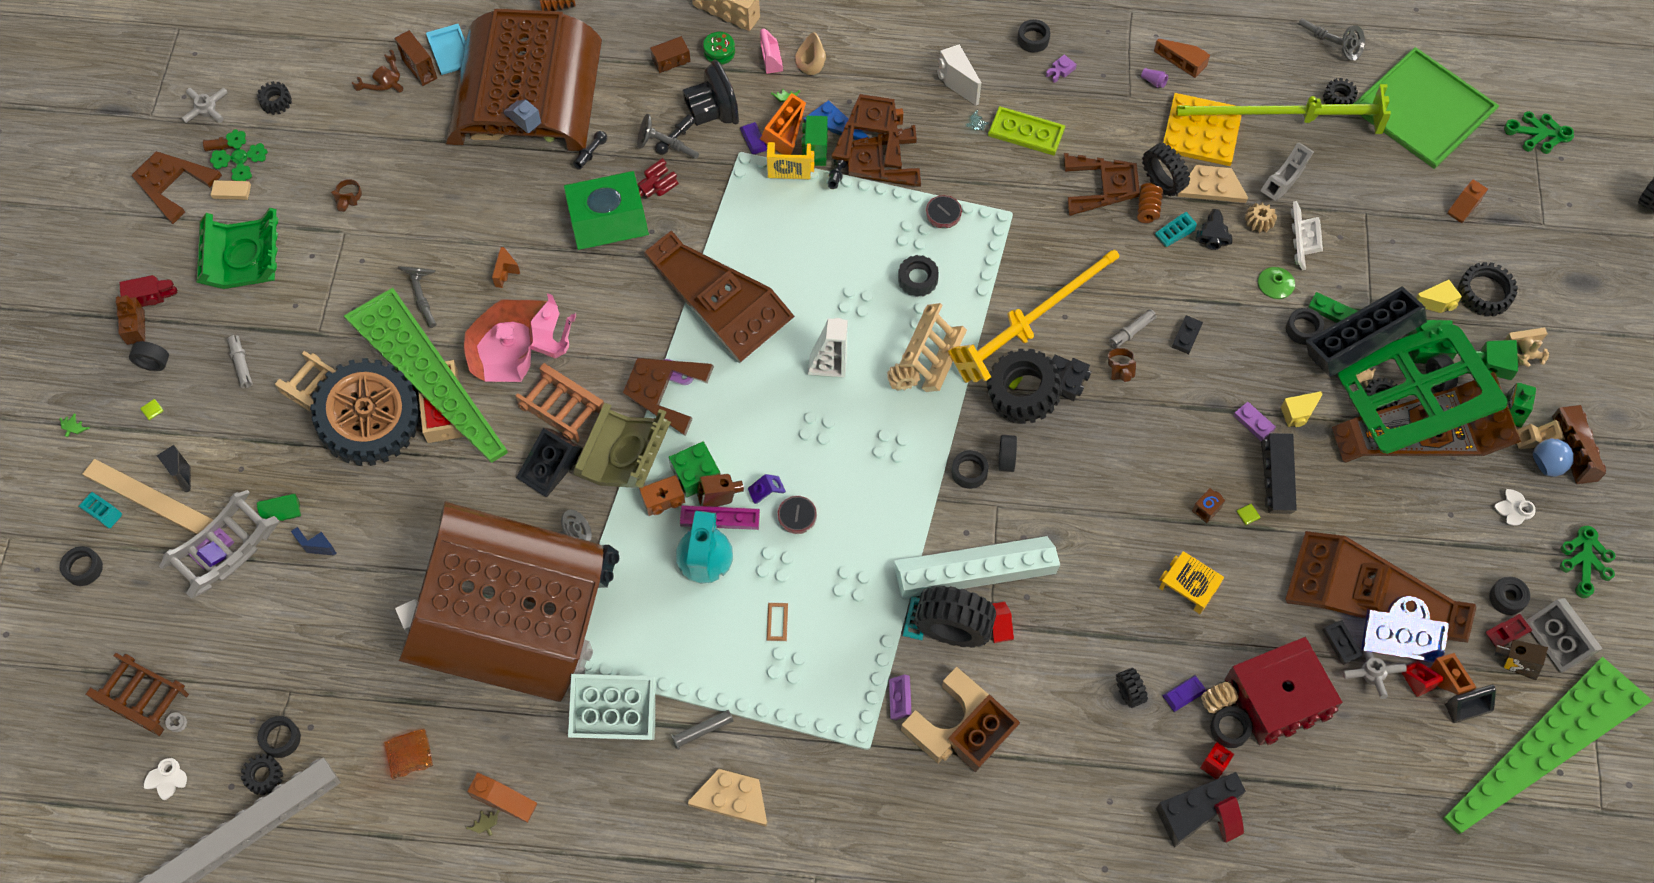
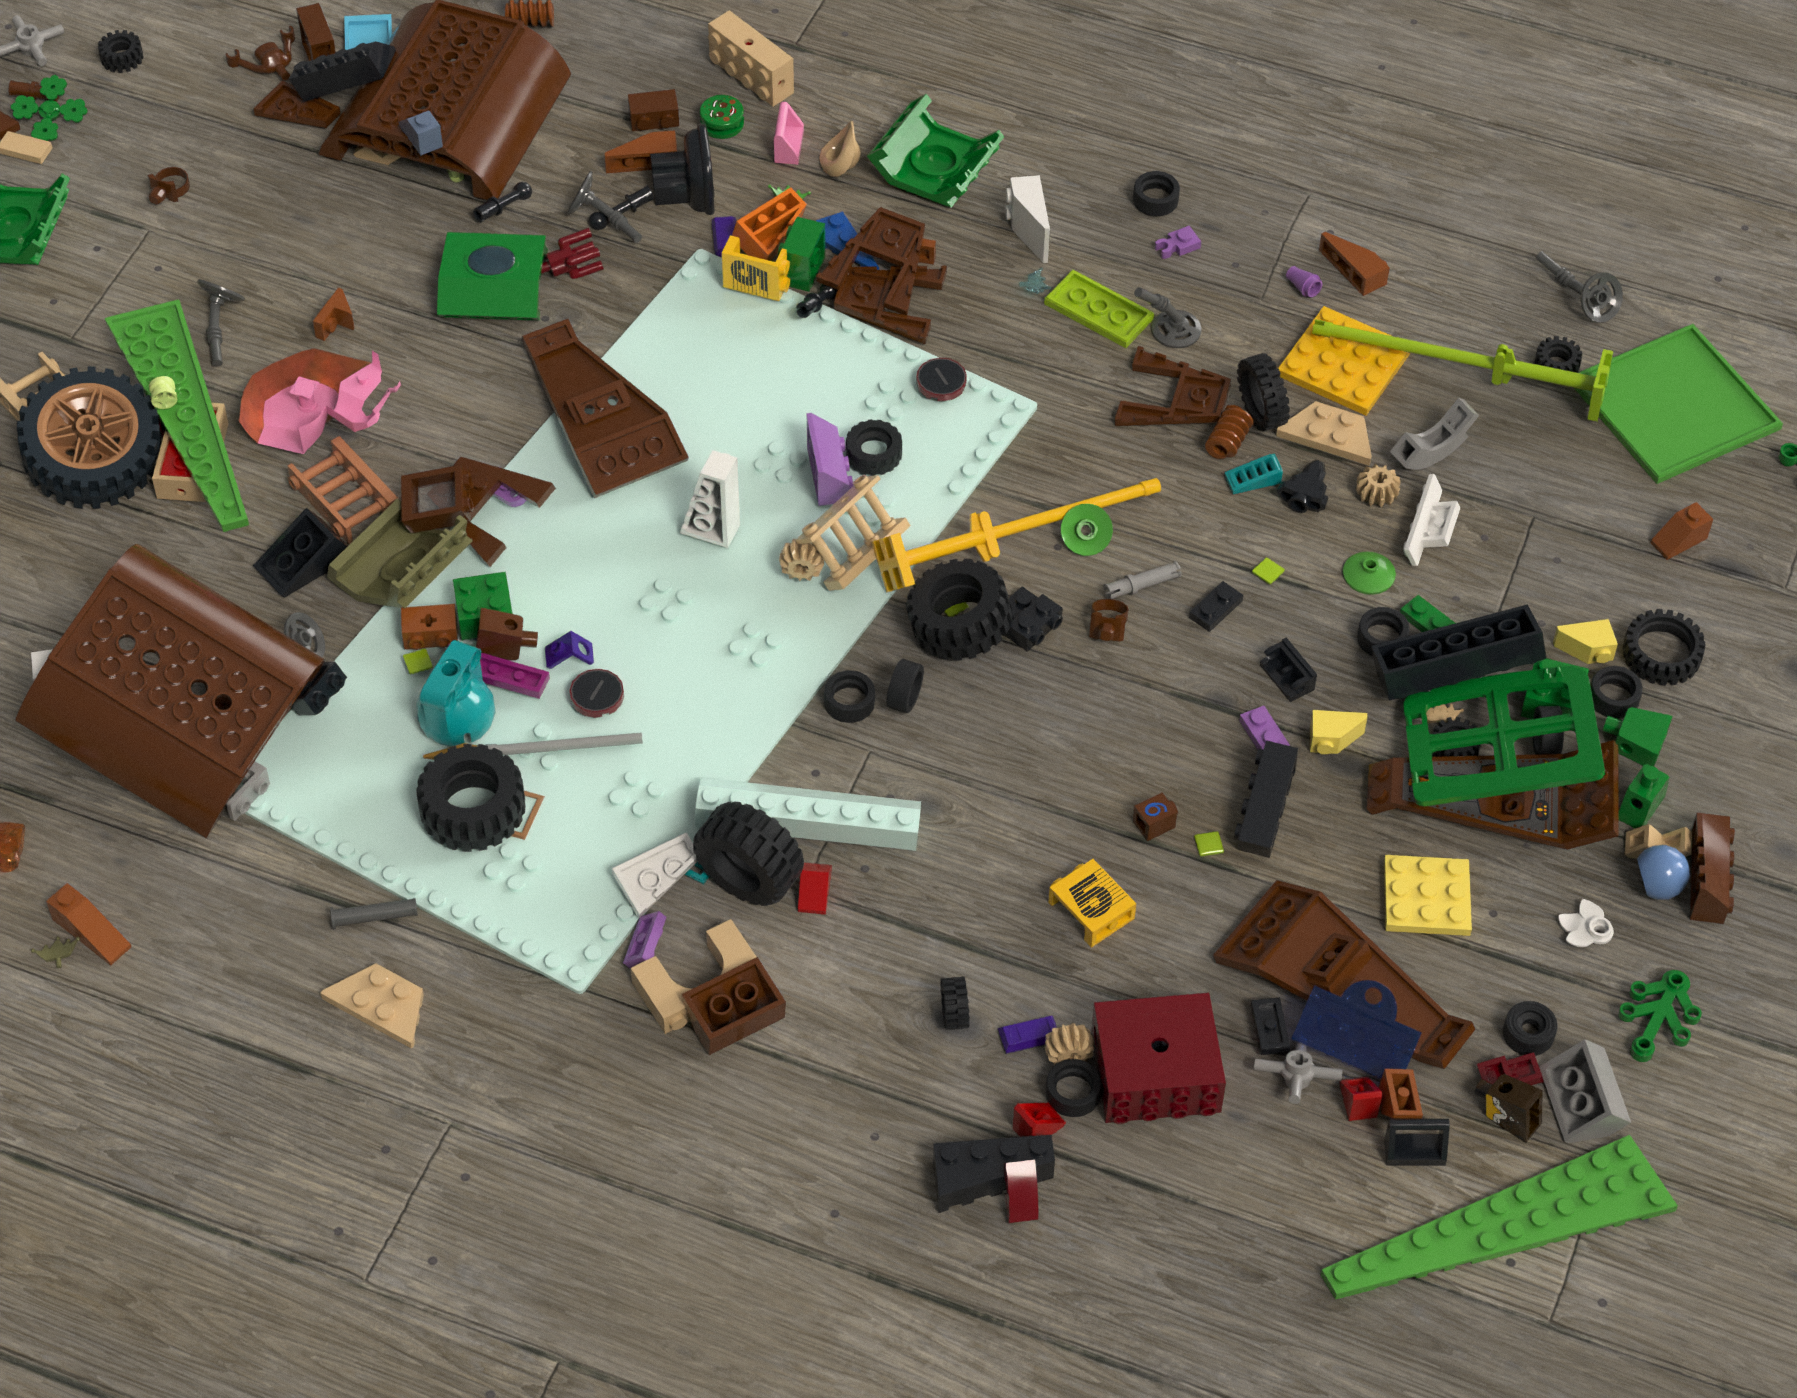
camera: 15 degrees right, 10 degrees down
(410, 366) = (163, 392): none -> yellowish green wheel
(417, 110) = (287, 105): none -> reddish brown wing
(445, 79) = (341, 70): none -> black slope
(612, 707) = (265, 852): light aqua slope -> none
(633, 396) = (435, 498): none -> reddish brown window
(662, 523) = (417, 661): none -> lime piece
(673, 89) = (636, 153): none -> dark orange slope
(725, 586) = (557, 745): none -> light grey piece
(742, 599) = (466, 769): none -> black tyre
(875, 45) = (931, 157): none -> green panel
(888, 645) = (654, 872): none -> white wing
(892, 296) = (827, 460): none -> medium lavender slope
(1081, 132) = (1174, 323): none -> dark grey dish
(1090, 304) = (1100, 529): none -> bright green dish
(1211, 299) = (1268, 570): none -> lime piece
(1254, 370) = (1289, 670): none -> black hinge
(1405, 514) = (1427, 895): none -> light yellow plate
(1477, 321) = (1620, 676): none -> black tyre
(1529, 343) = (1691, 724): tan piece -> none

